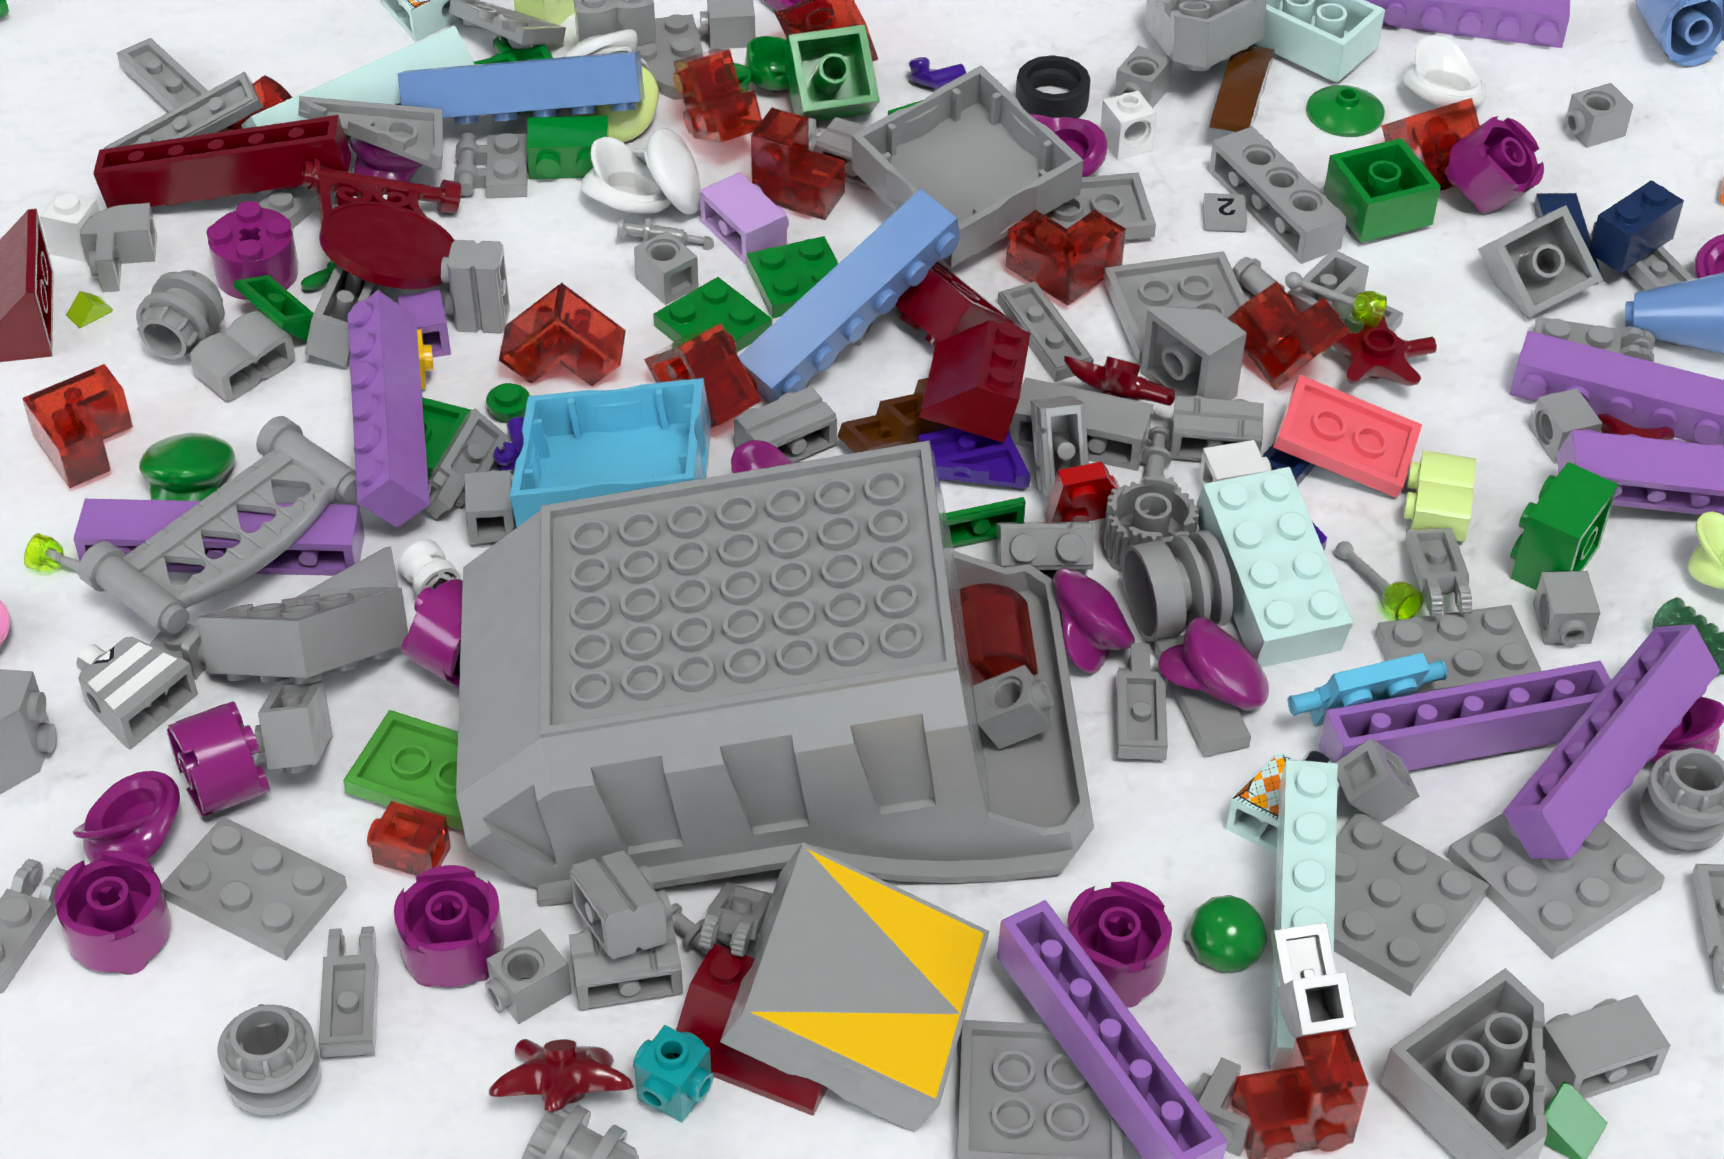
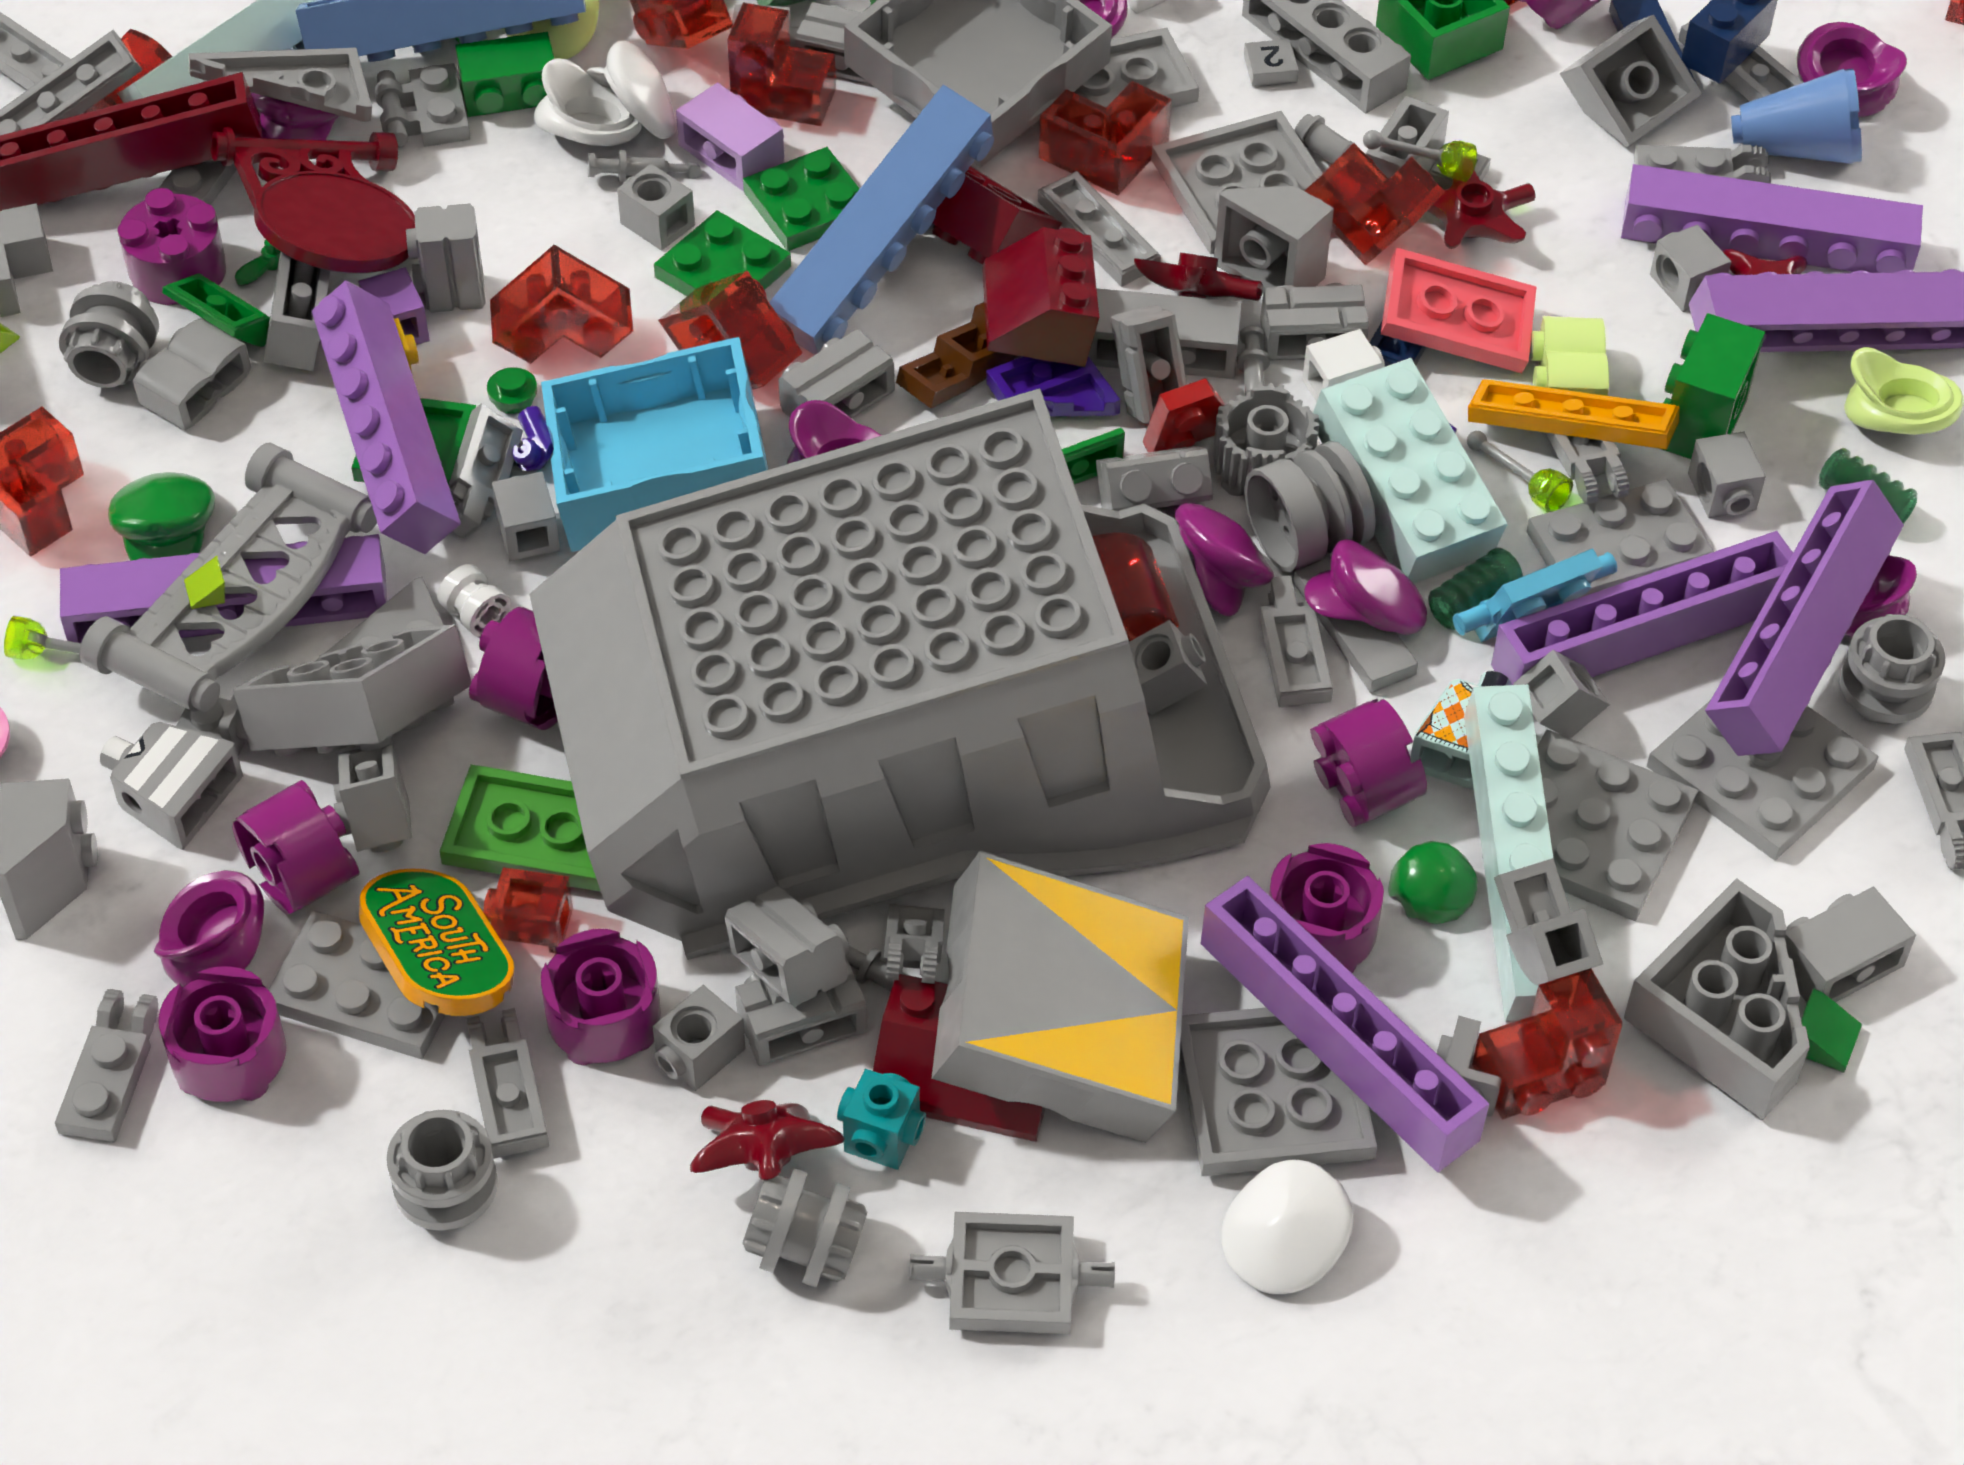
camera: 10 degrees left, 5 degrees up
(197, 527) = (206, 585): none -> lime piece
(318, 858) = (436, 941): none -> tile
(1184, 815) = (1368, 761): none -> magenta brick
(1312, 672) = (1473, 585): none -> clear green piece
(1435, 536) = (1574, 413): none -> light orange tile

